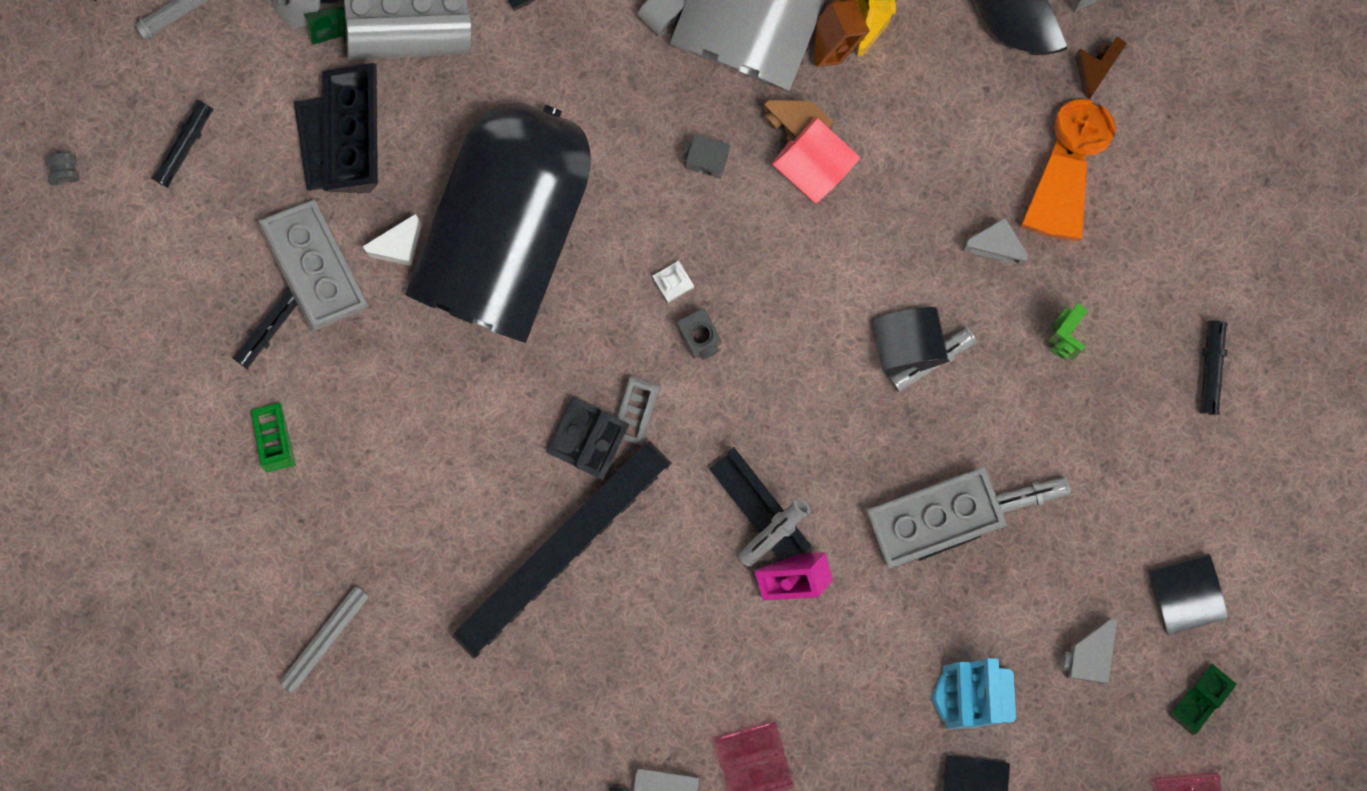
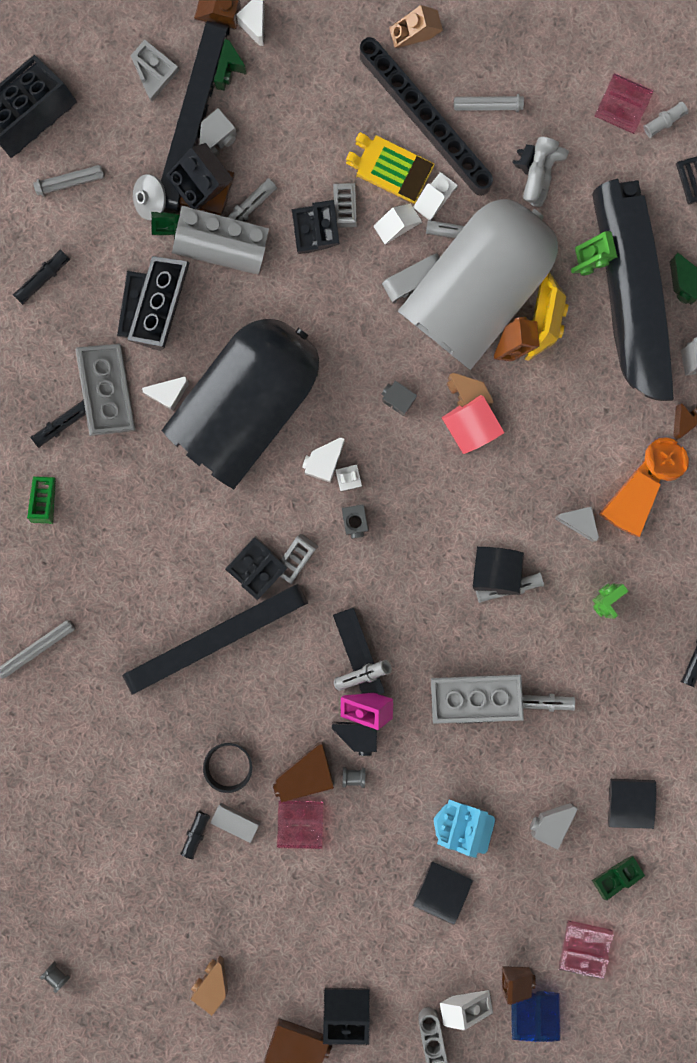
camera: 15 degrees right, 5 degrees up
(602, 721) = (221, 788): none -> black tyre
(633, 268) = (323, 460): none -> white slope
(741, 693) = (305, 776): none -> reddish brown slope
(794, 618) = (357, 737): none -> black slope
(806, 675) = (353, 777): none -> dark grey bush

